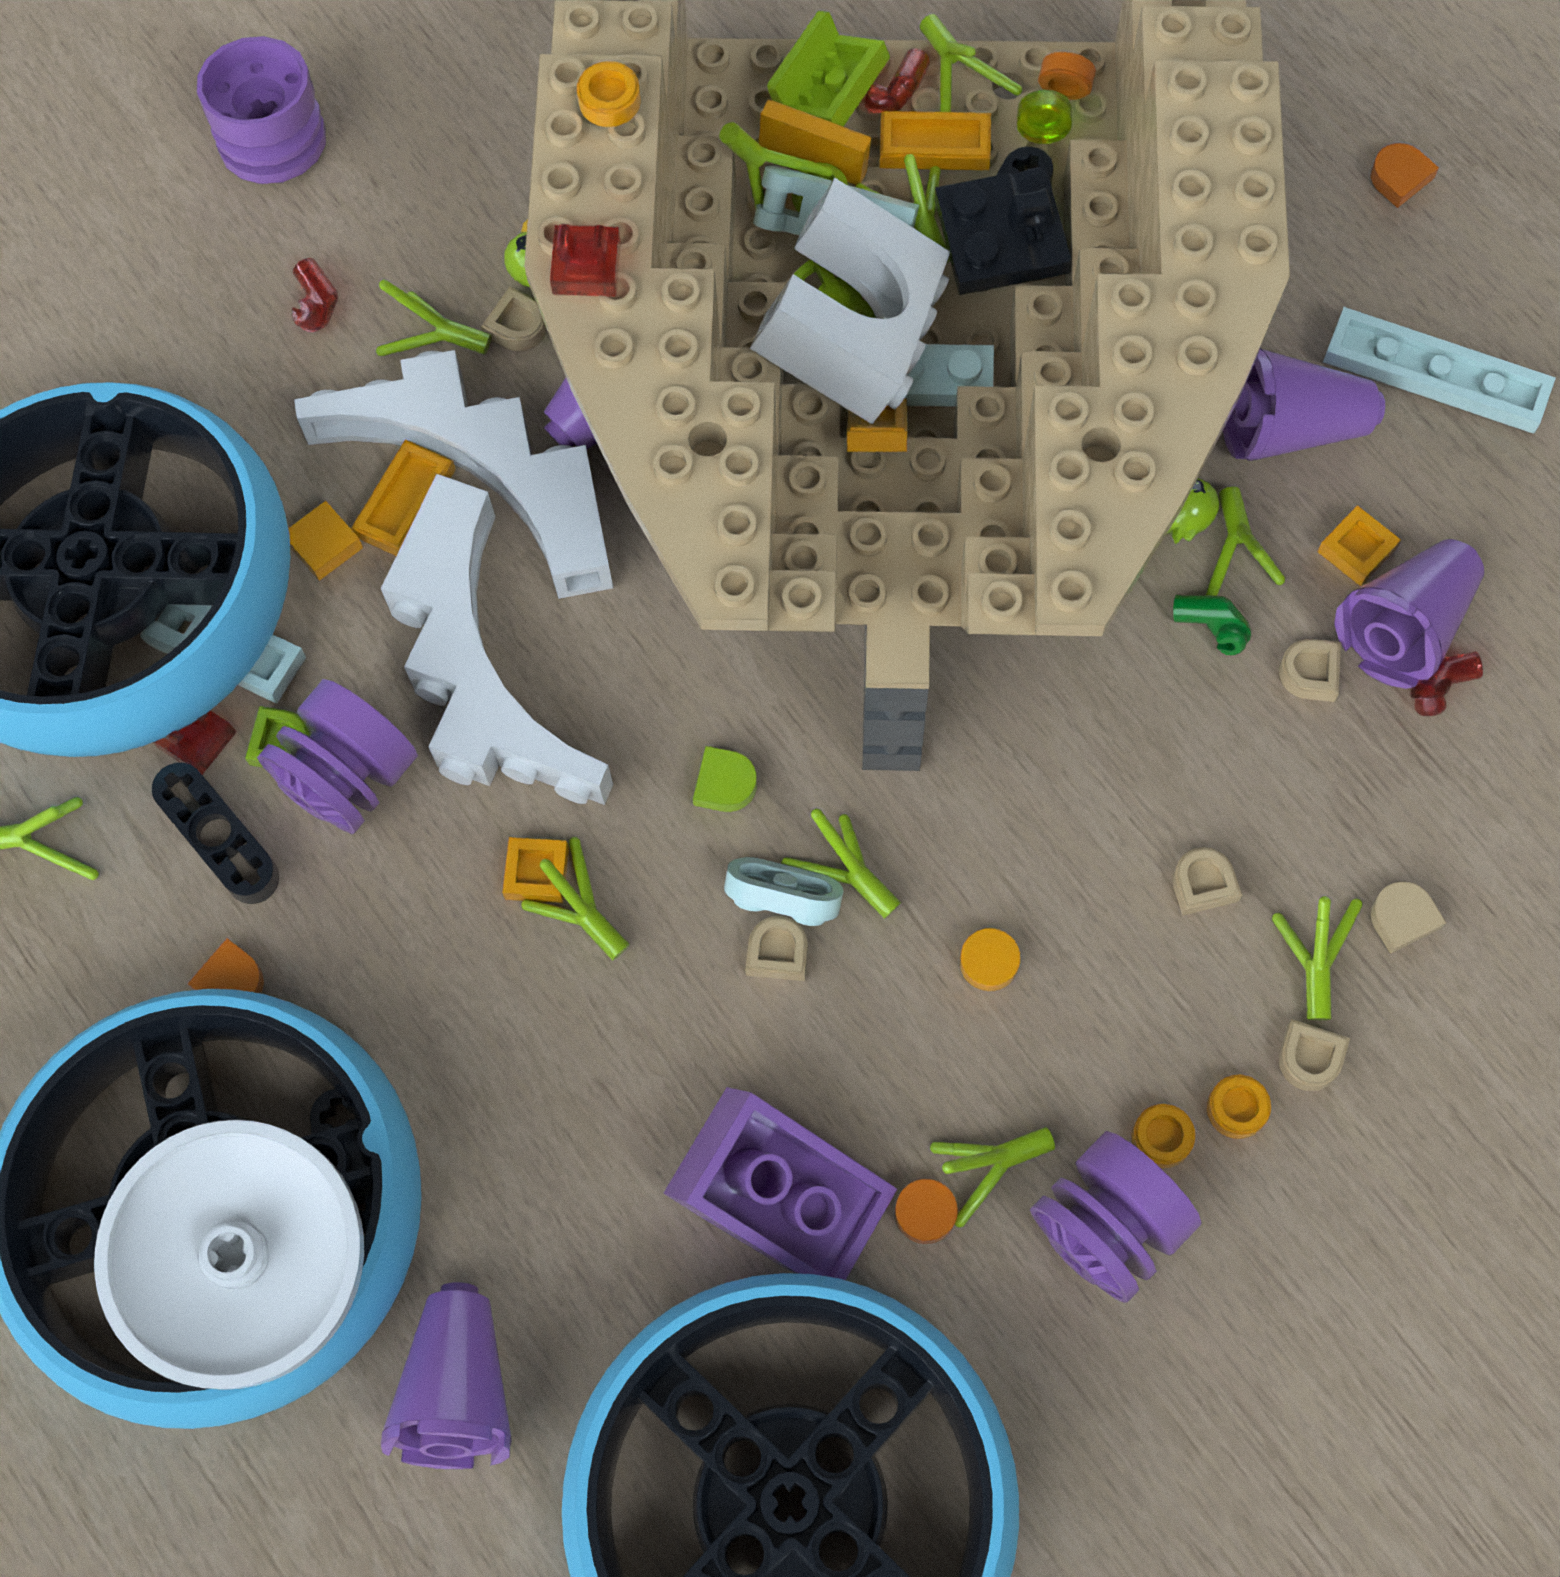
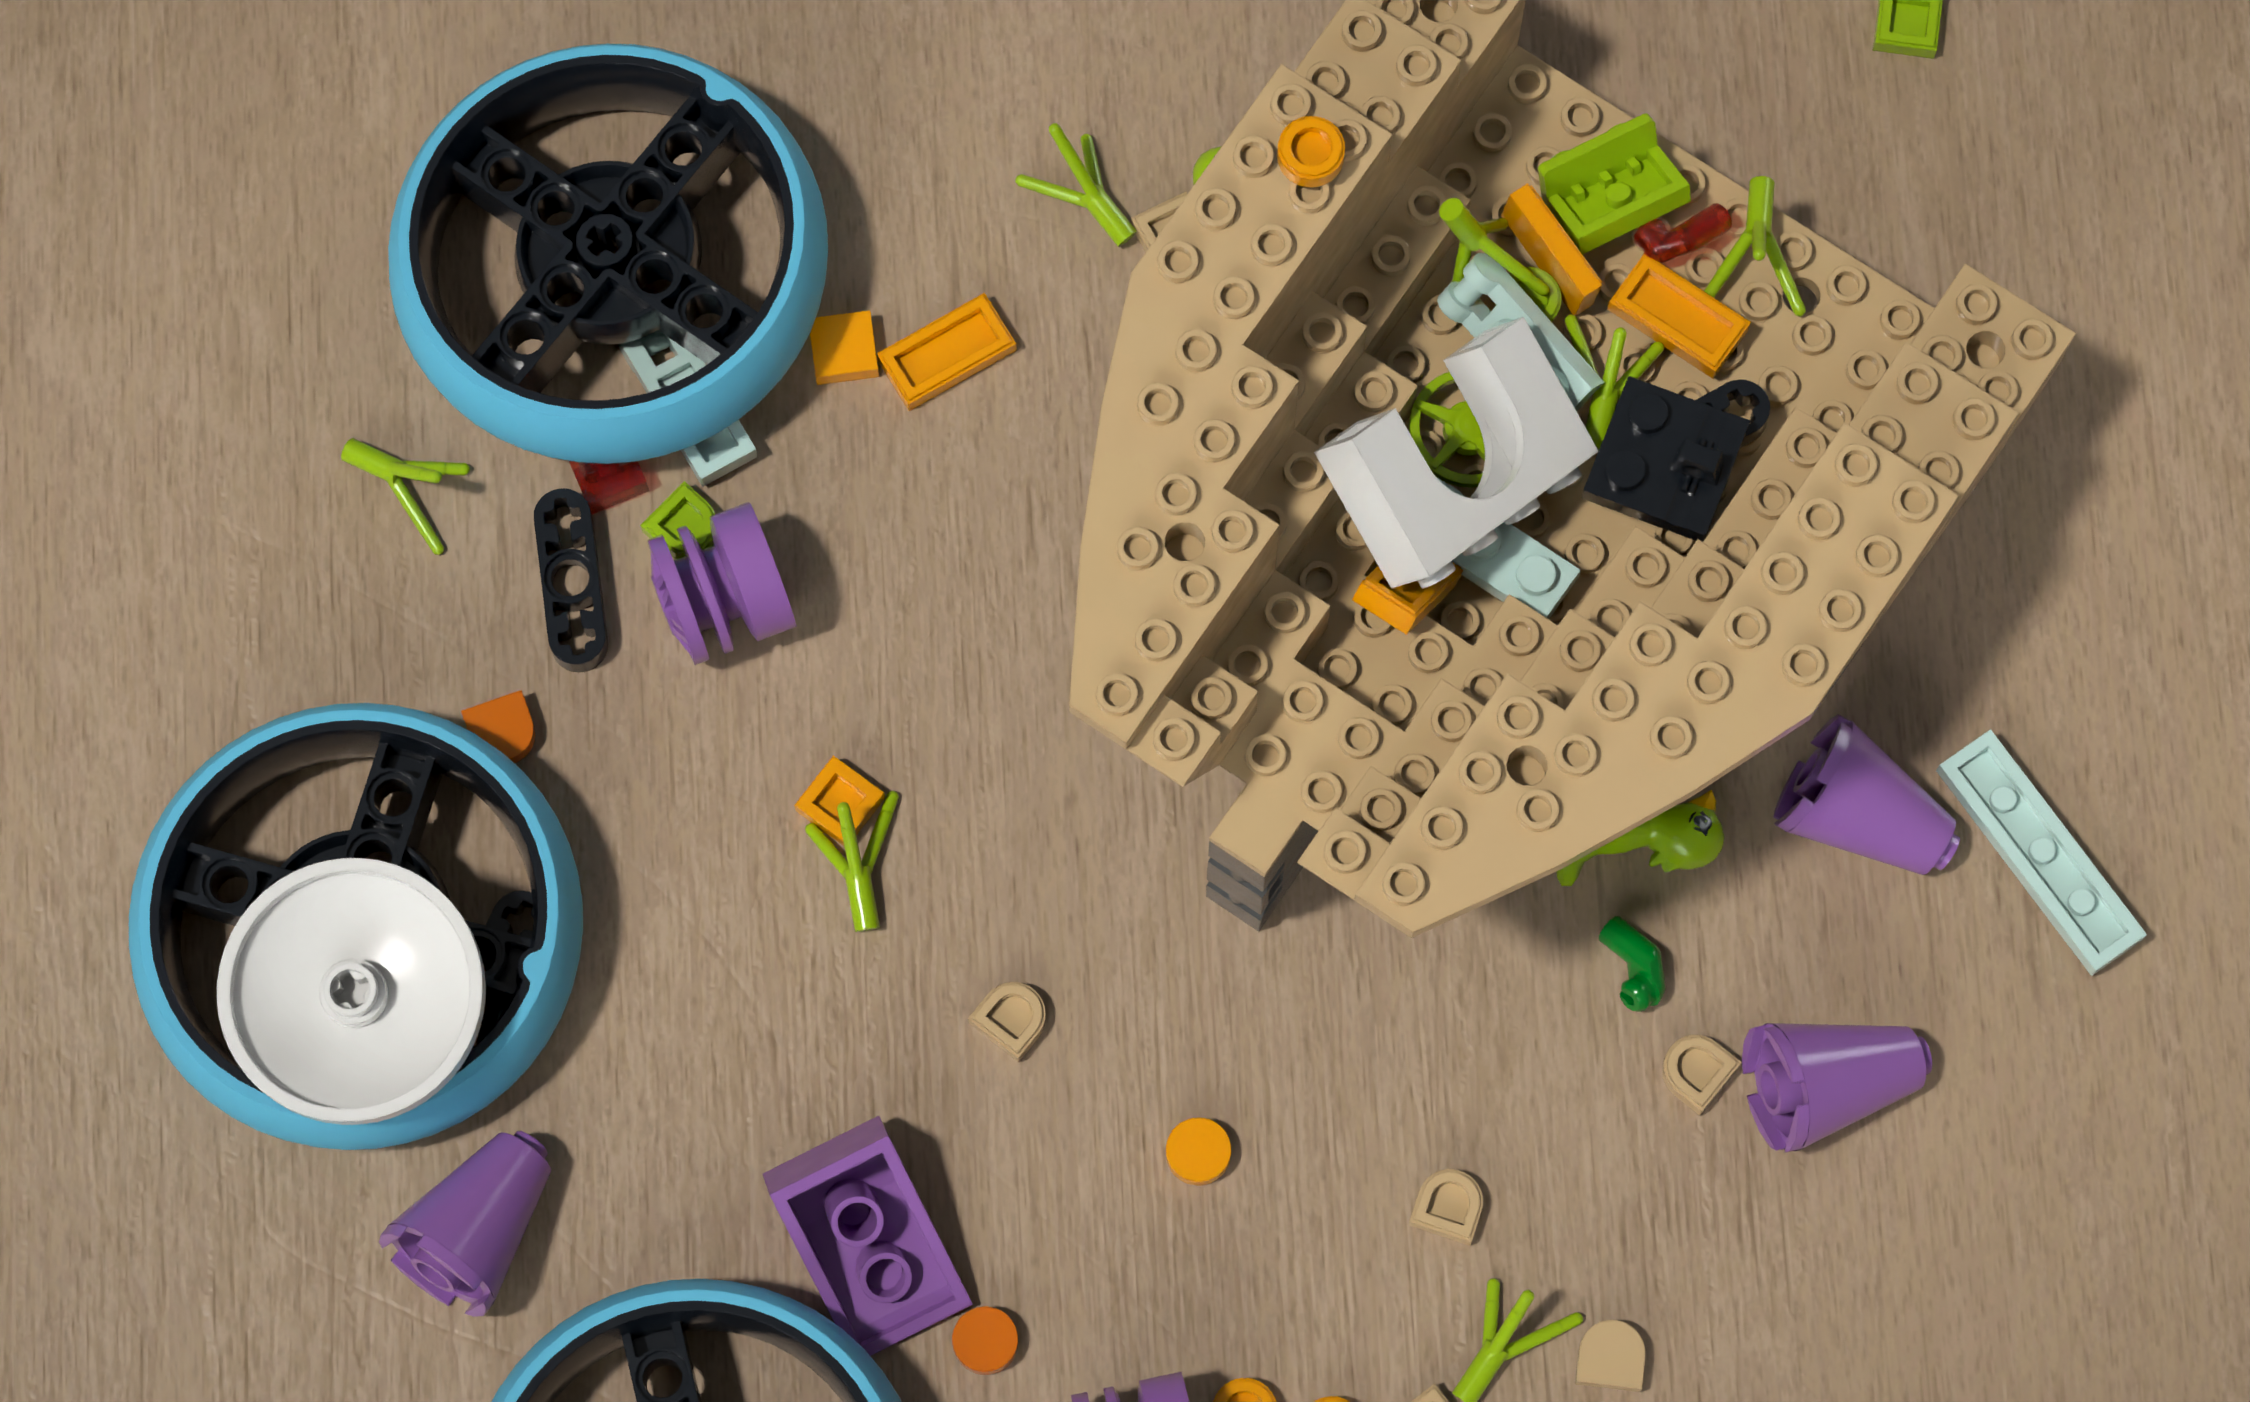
camera: 30 degrees right, 5 degrees up
(319, 300) = (995, 89): clear red arm -> none
(483, 724) = (922, 463): white arch -> none
(489, 440) = (1065, 346): white arch -> none
(585, 260) = (1182, 307): clear red tile -> none
(724, 781) = (1067, 826): lime tile -> none
(783, 889) = (1050, 966): light aqua plate -> none
(850, 853) = (1132, 987): lime plant -> none
(1002, 1156) = (1068, 1324): lime plant -> none
(1044, 116) = (1796, 361): clear neon green tile -> none
(1067, 74) = (1849, 331): orange tile -> none
(1239, 532) = (1722, 901): lime plant -> none
(1359, 545) = (1833, 979): light orange tile -> none
(1401, 172) = (2165, 621): orange tile -> none
(1453, 670) = (1822, 1155): clear red arm -> none

